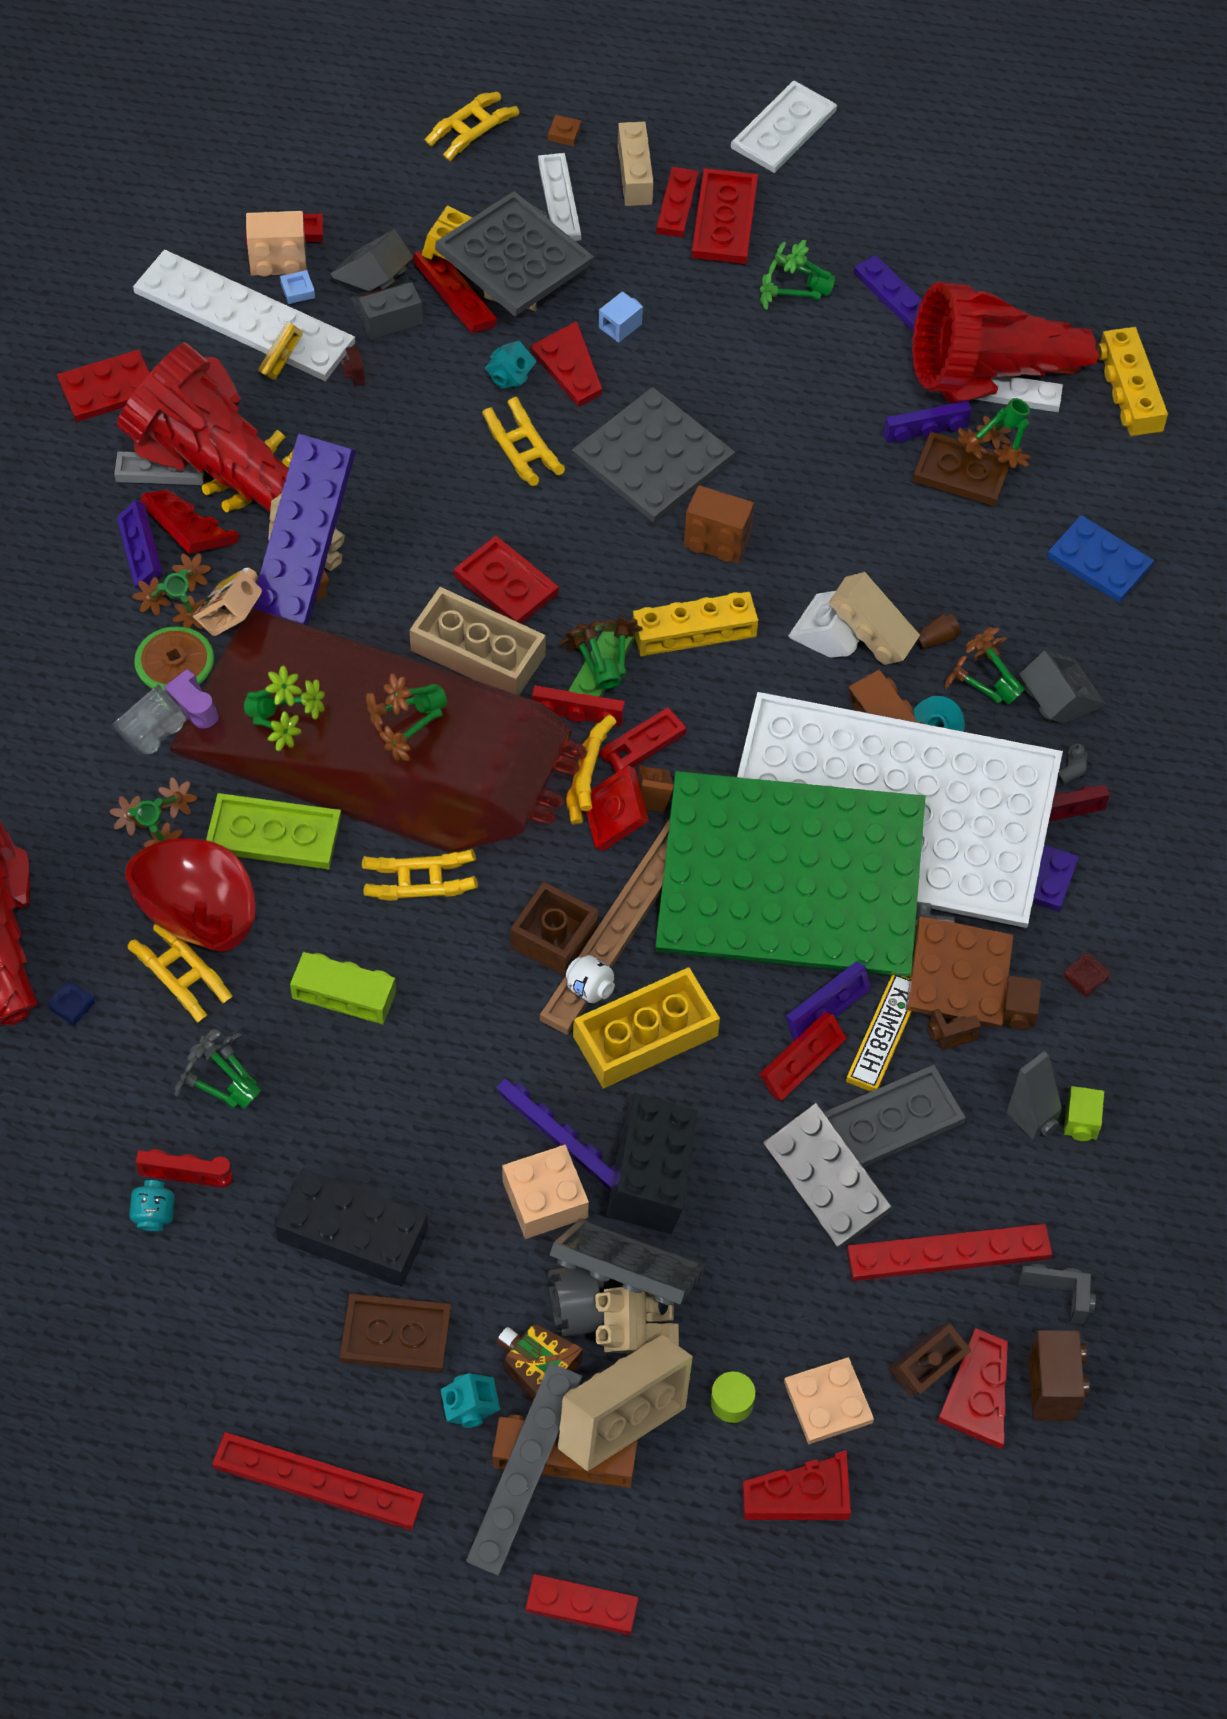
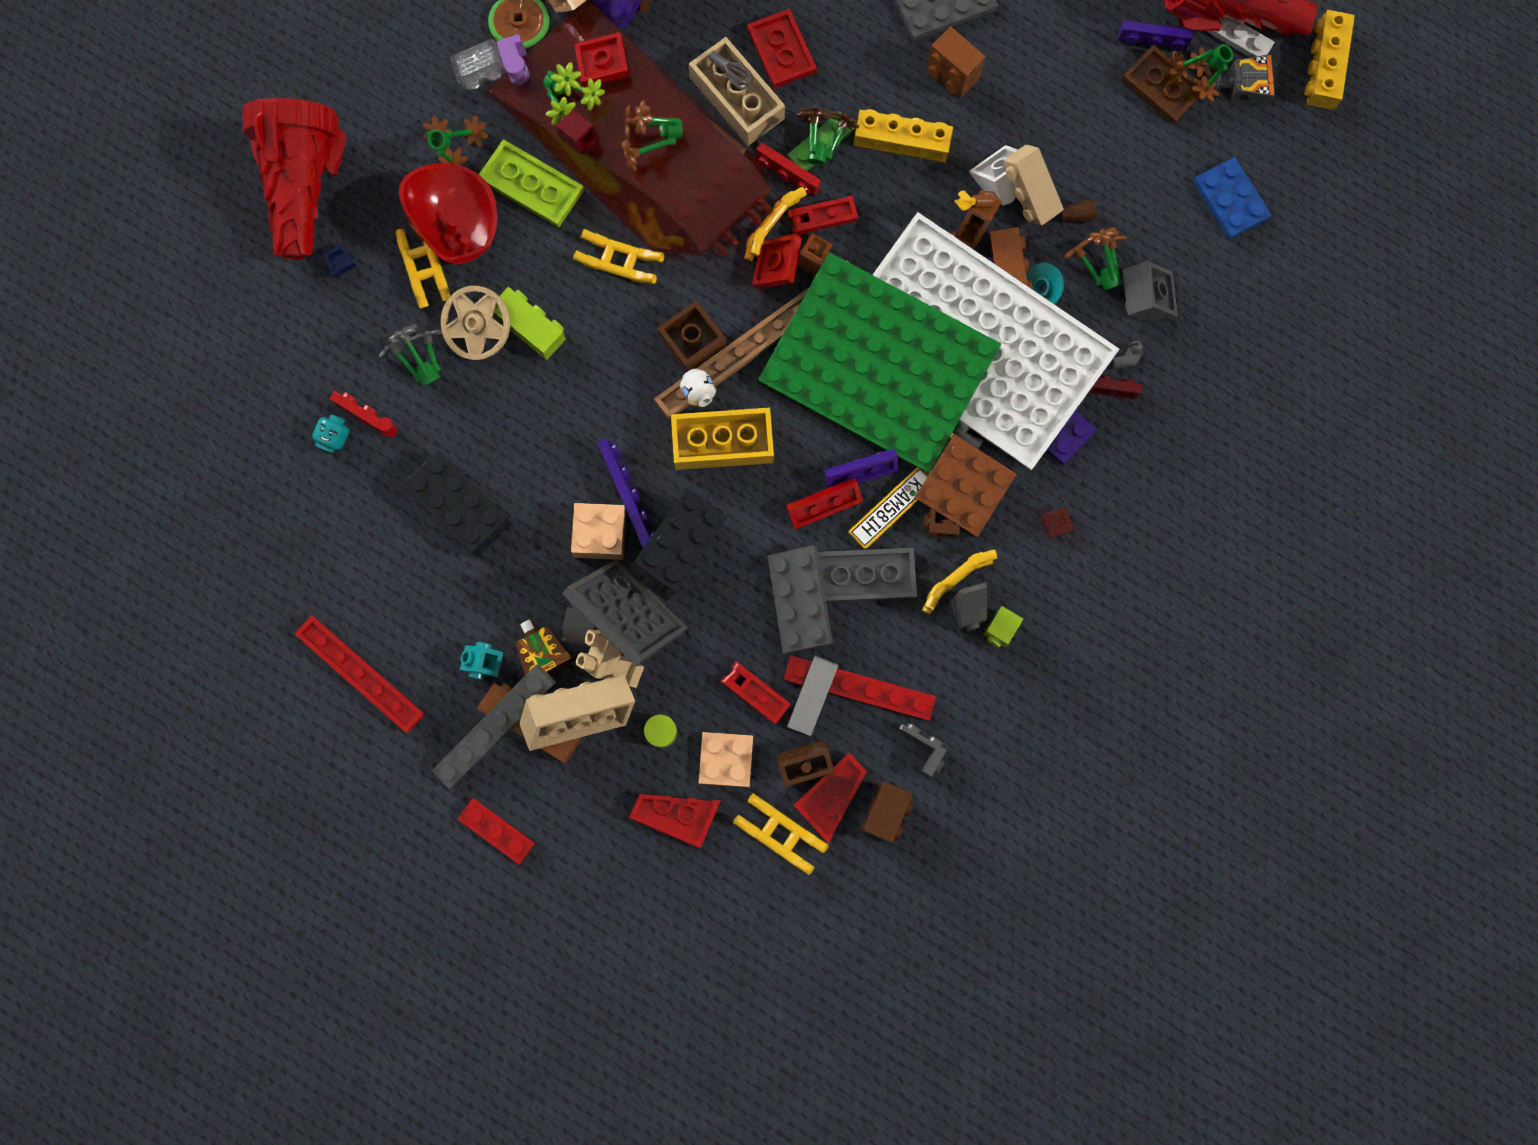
camera: 20 degrees right, 20 degrees up
(279, 1009) = (475, 322): none -> tan wheel
(307, 655) = (602, 59): none -> red plate
(315, 745) = (577, 132): none -> dark red brick
(395, 1333) = (455, 591): reddish brown plate -> none
(459, 616) = (726, 65): none -> flat silver piece
(827, 1306) = (756, 693): none -> red plate
(828, 672) = (978, 217): none -> dark orange torso
(899, 1279) = (812, 695): none -> light grey tile
(958, 1452) = (796, 830): none -> yellow piece
(1016, 1051) = (974, 562): none -> yellow piece
(1022, 1002) = (999, 526): reddish brown brick -> none
(1057, 432) = (1249, 80): none -> dark grey torso

